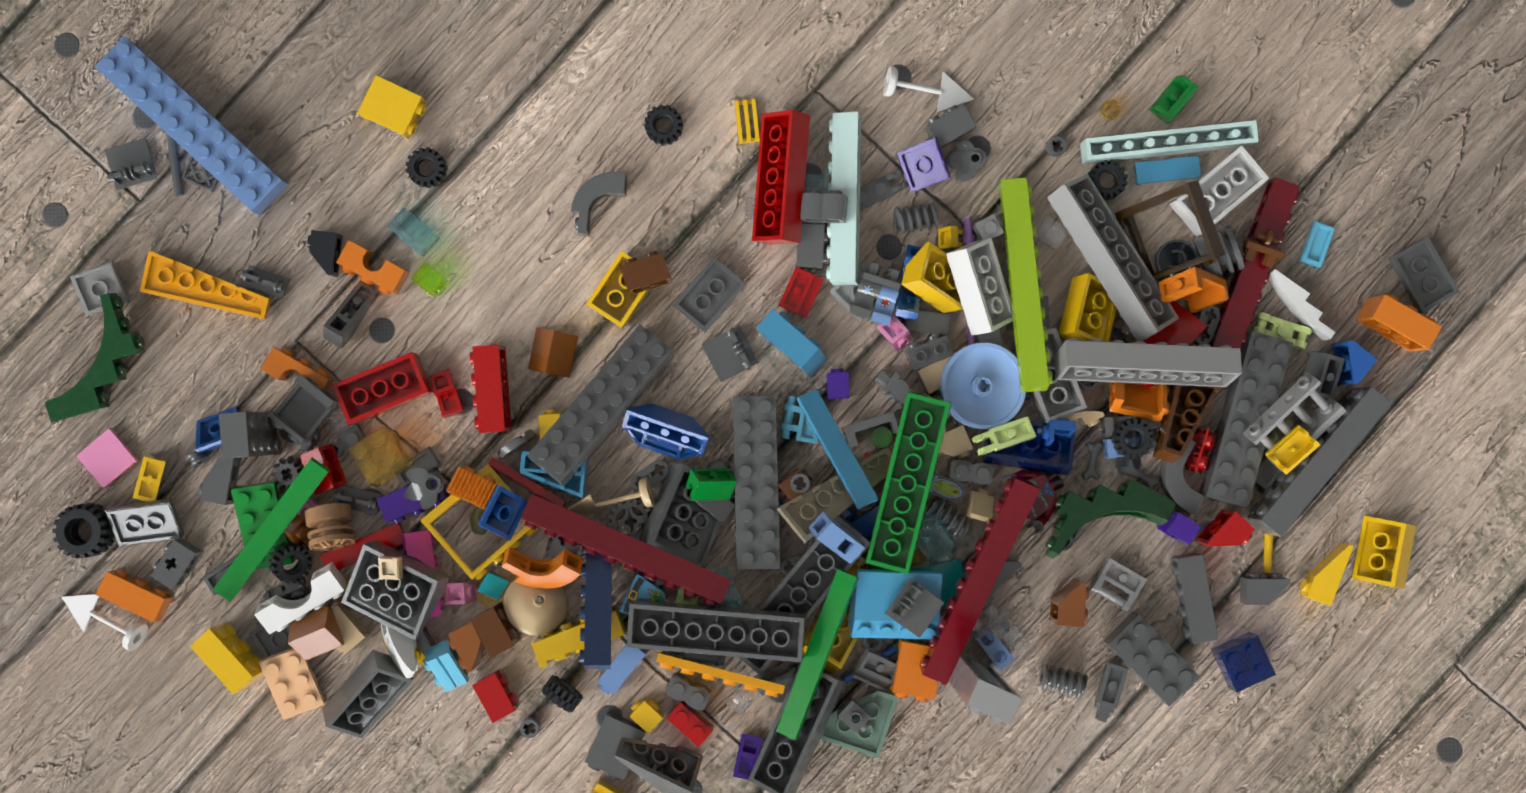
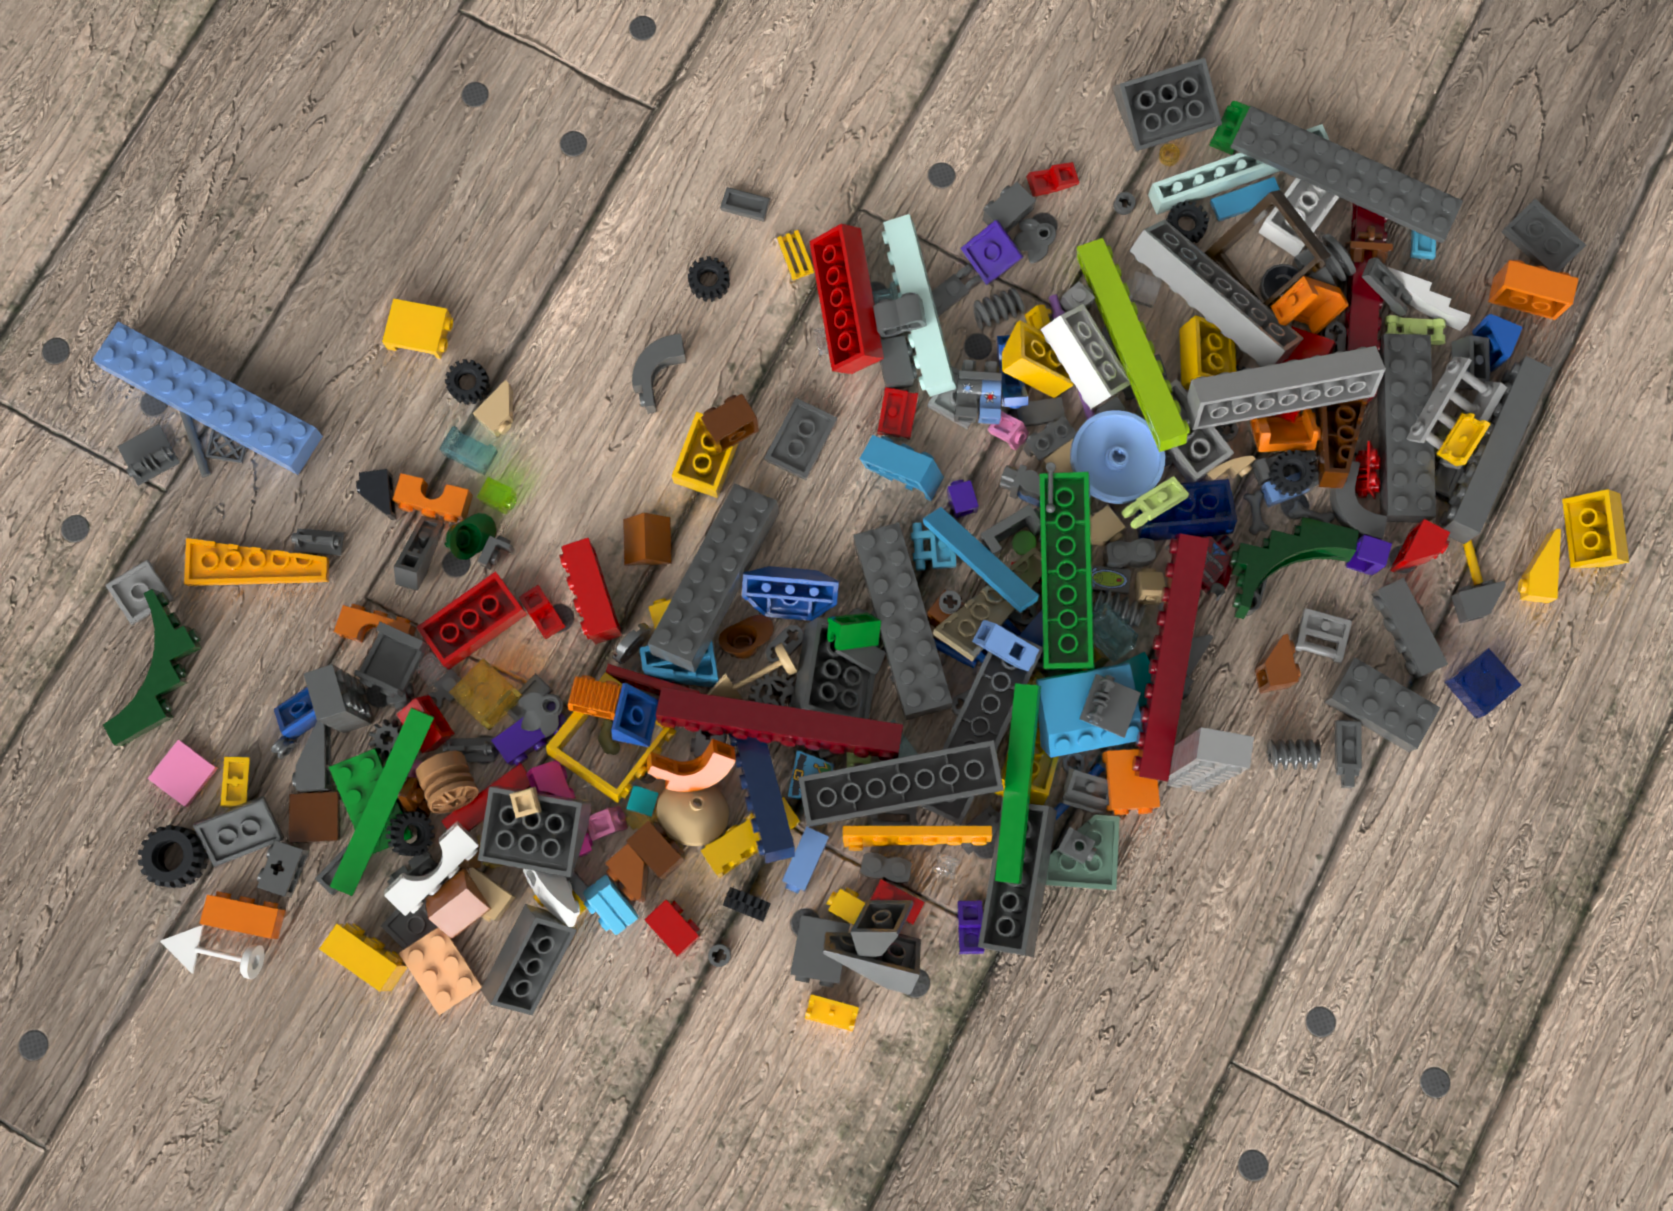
camera: 10 degrees left, 10 degrees down
(212, 525) = (314, 817): none -> reddish brown tile
(398, 311) = (470, 535): none -> dark green piece
(412, 331) = (491, 554): none -> dark grey bracket
(447, 201) = (497, 410): none -> tan slope
(618, 461) = (745, 636): none -> reddish brown piece
(668, 745) = (879, 925): none -> dark grey slope
(714, 61) = (745, 204): none -> dark grey tile
(730, 353) = (838, 495): dark grey hinge -> none
(908, 425) = (1050, 467): none -> dark grey hinge
(949, 92) = (997, 176): white piece -> none
(995, 630) = (1209, 714): clear hips -> none
(998, 107) = (1052, 180): none -> red slope
(1060, 426) = (1209, 480): blue bracket -> none
(1122, 63) = (1168, 104): none -> dark grey slope
(1263, 174) = (1347, 174): none -> dark grey plate
(1268, 287) = (1387, 286): none -> dark grey hinge

